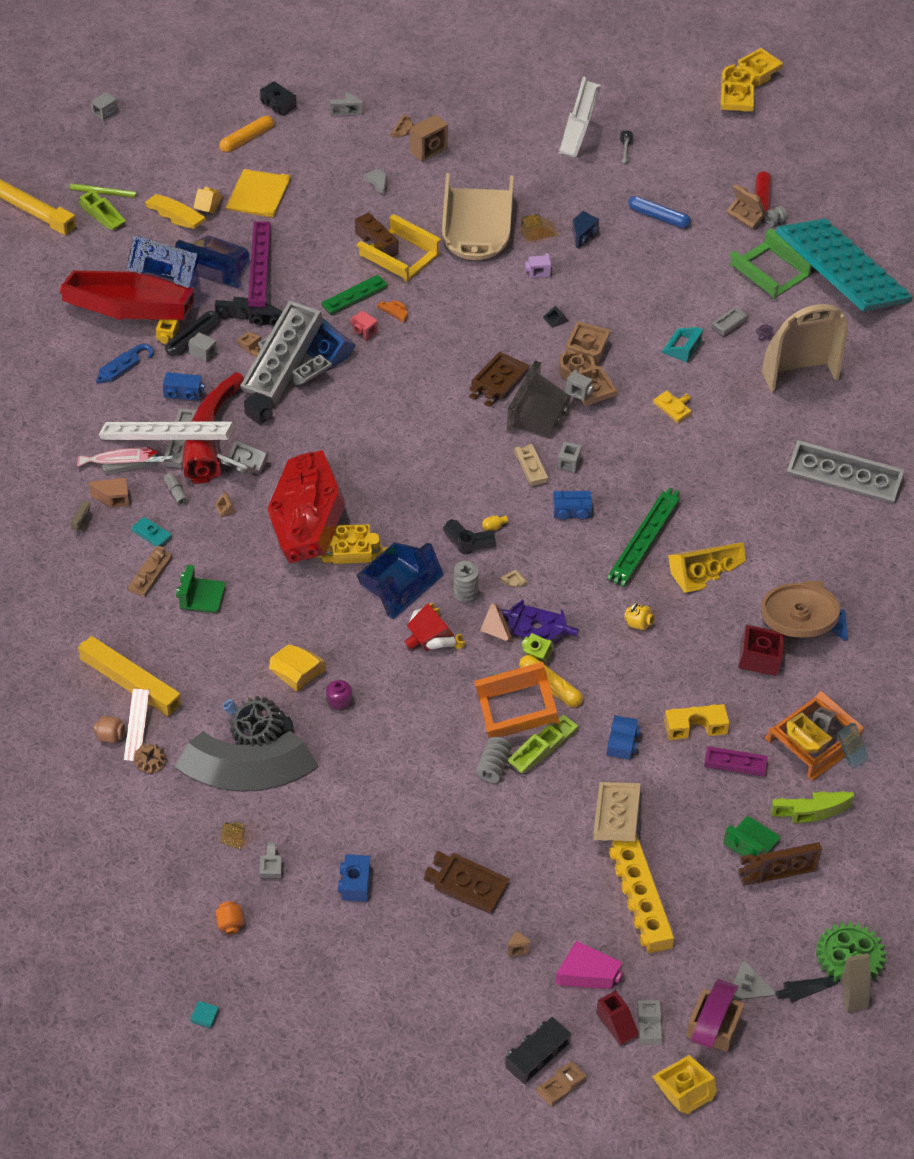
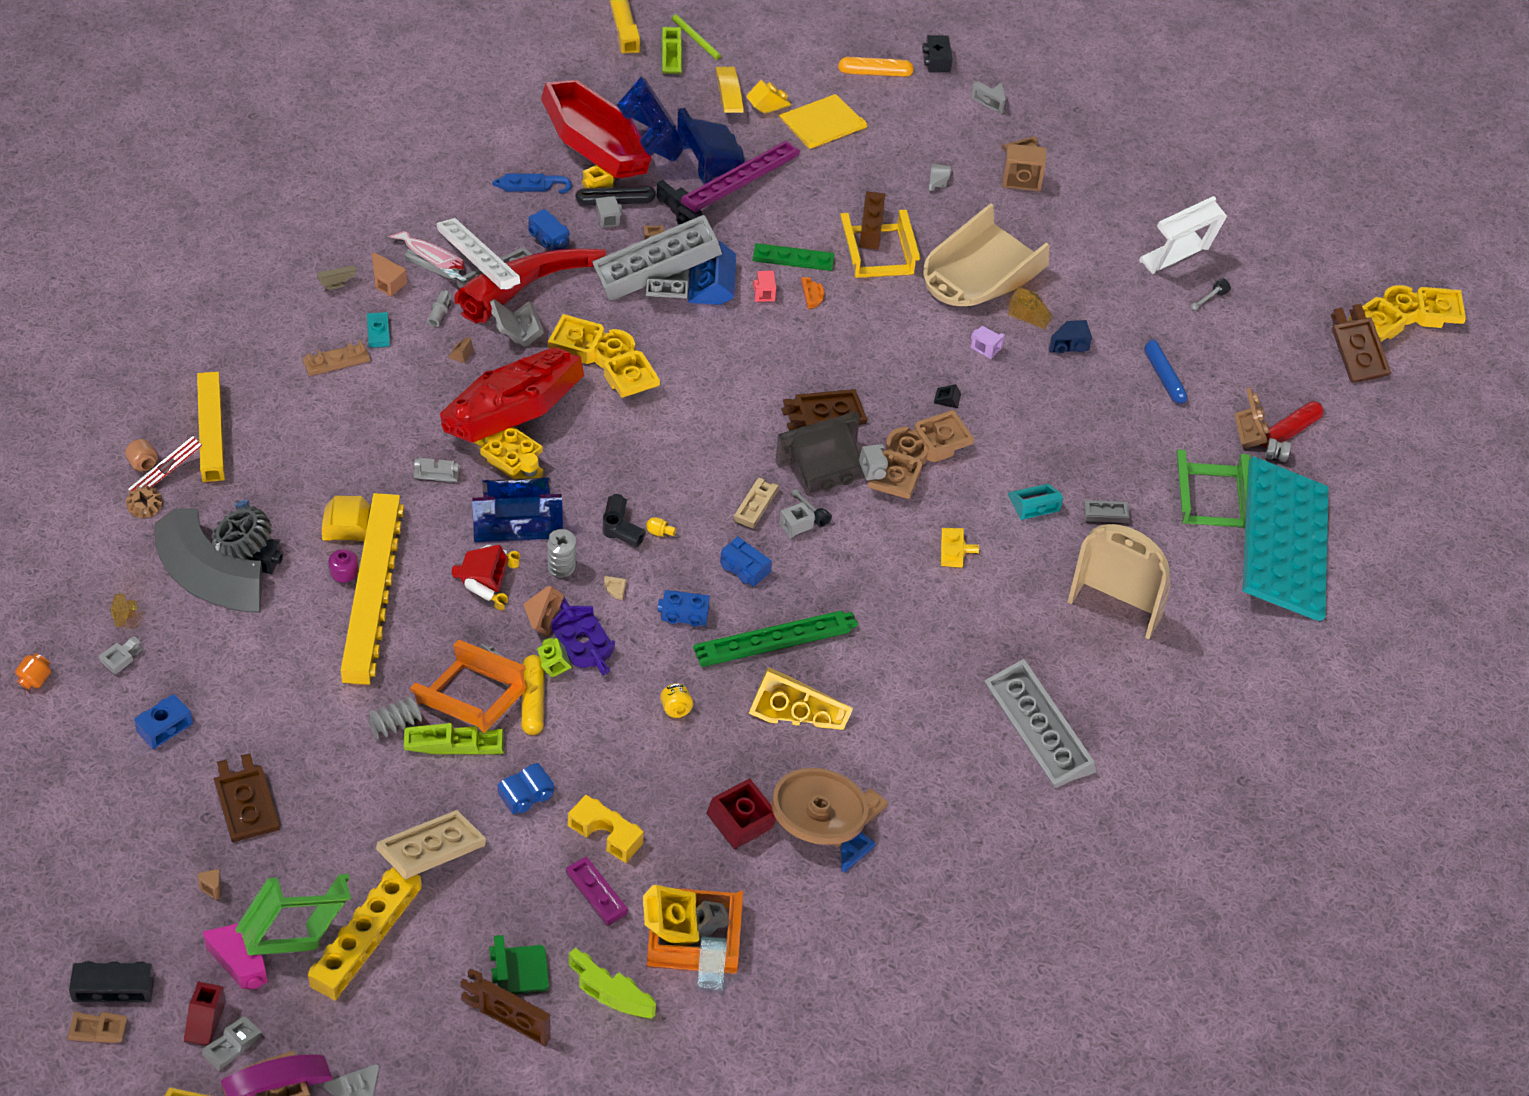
camera: 40 degrees right, 0 degrees up
(199, 593) = (347, 401): green bracket -> none
(258, 408) = (585, 290): black brick -> none
(313, 592) = (440, 471): none -> light grey hinge
(327, 435) = (613, 351): none -> yellow plate
(375, 695) = (371, 590): none -> yellow brick
(573, 559) = (684, 608): none -> blue brick
(579, 441) = (822, 516): none -> black hinge
(611, 911) = (269, 904): none -> bright green piece
(745, 119) = (1359, 345): none -> reddish brown tile

